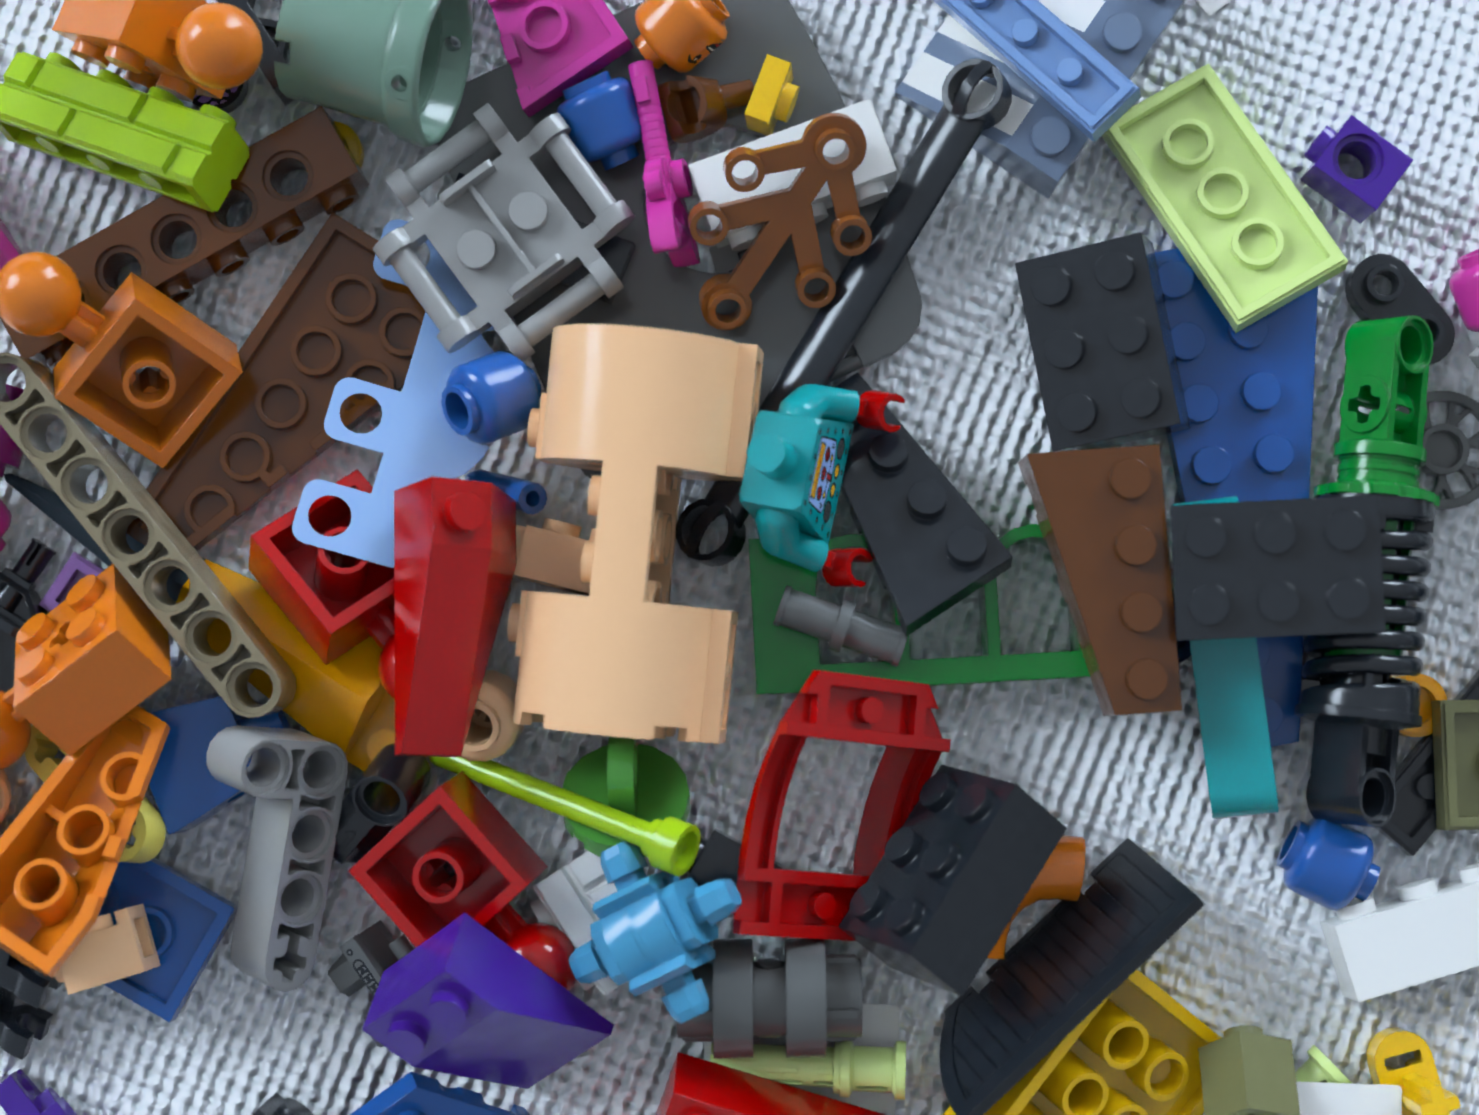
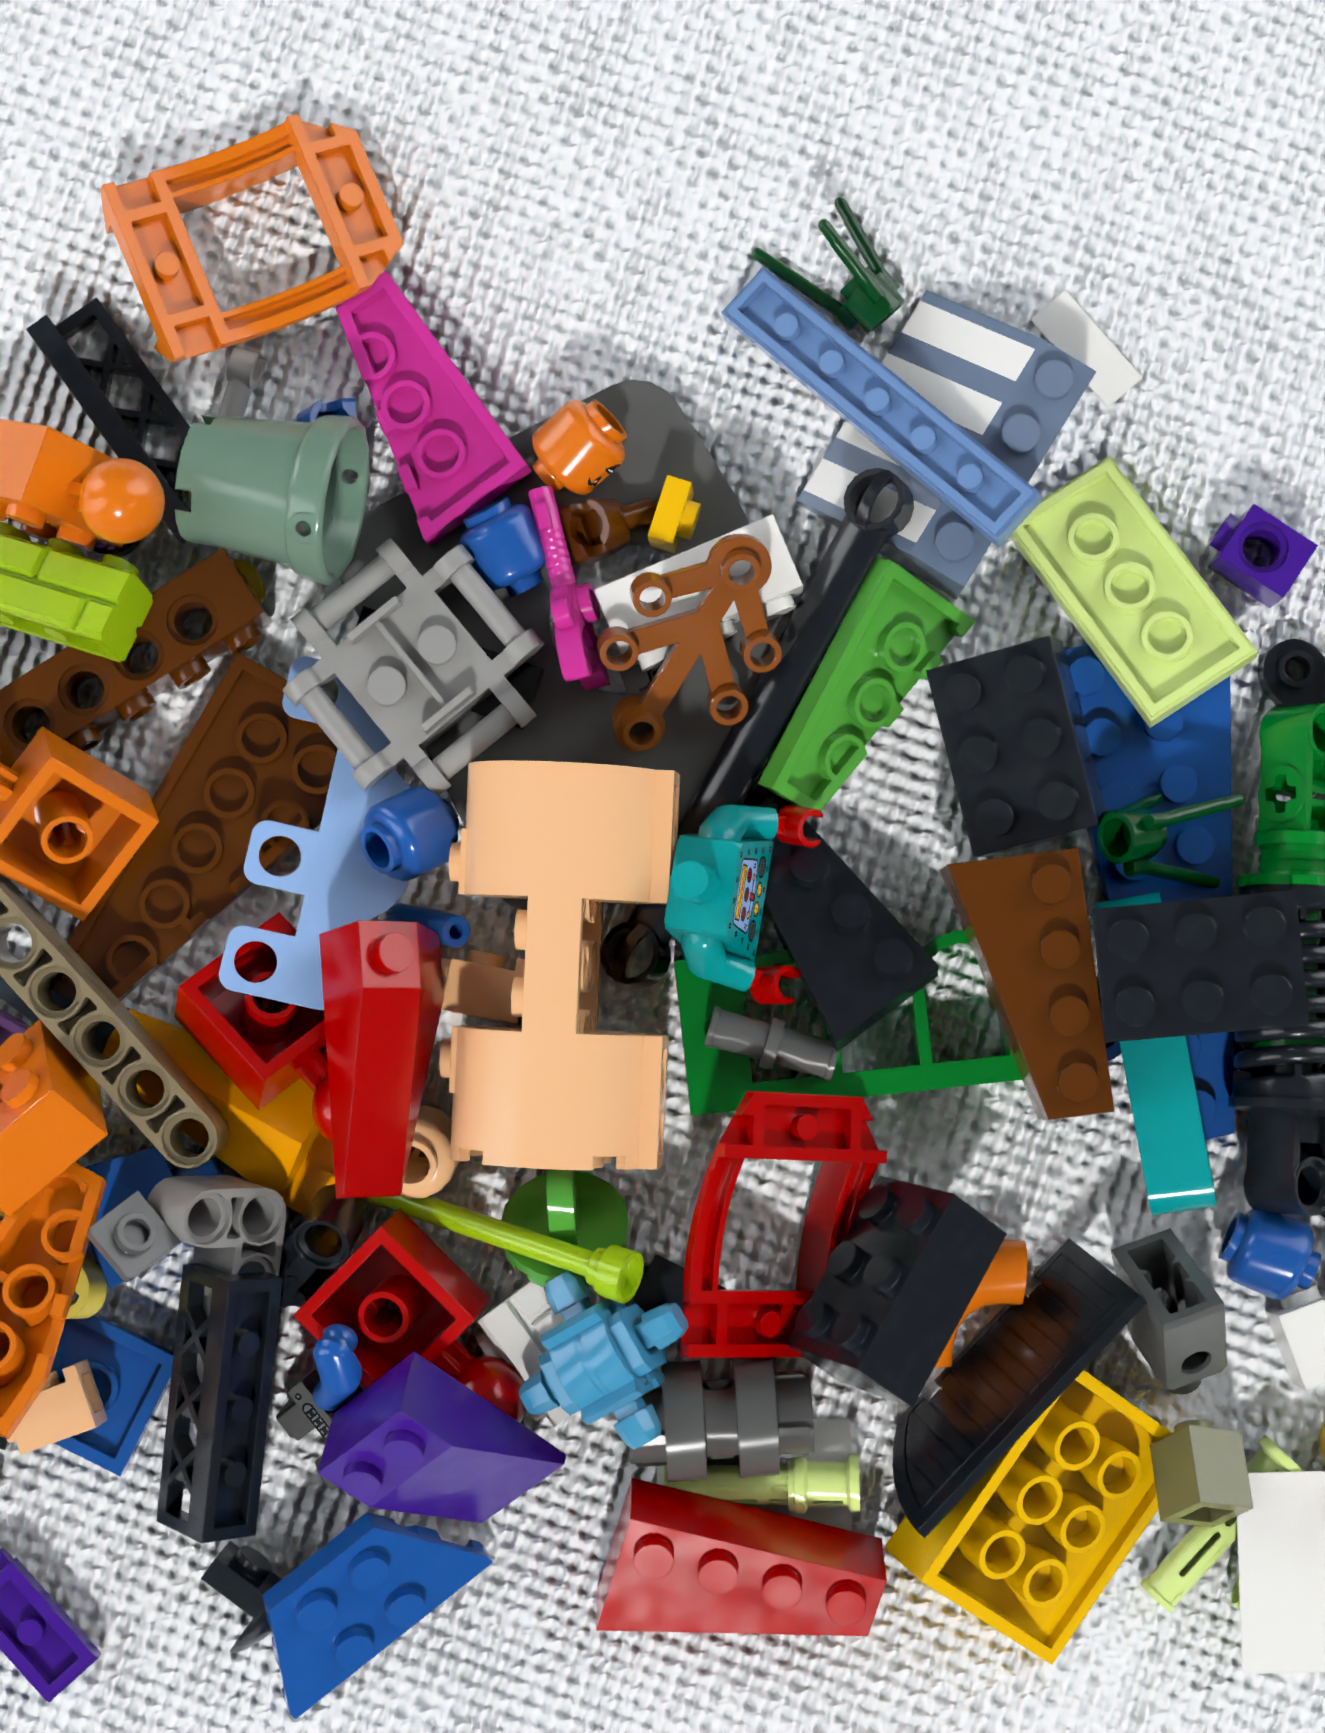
camera: 10 degrees left, 0 degrees up
(190, 784) = (132, 1238): none -> dark grey bracket
(276, 957) = (226, 1407): none -> black fence
(388, 924) = (337, 1367): none -> blue arm
(957, 261) = (869, 668): none -> bright green wing
(1220, 435) = (1137, 834): none -> dark green plant
(1243, 939) = (1188, 1334): none -> dark grey torso

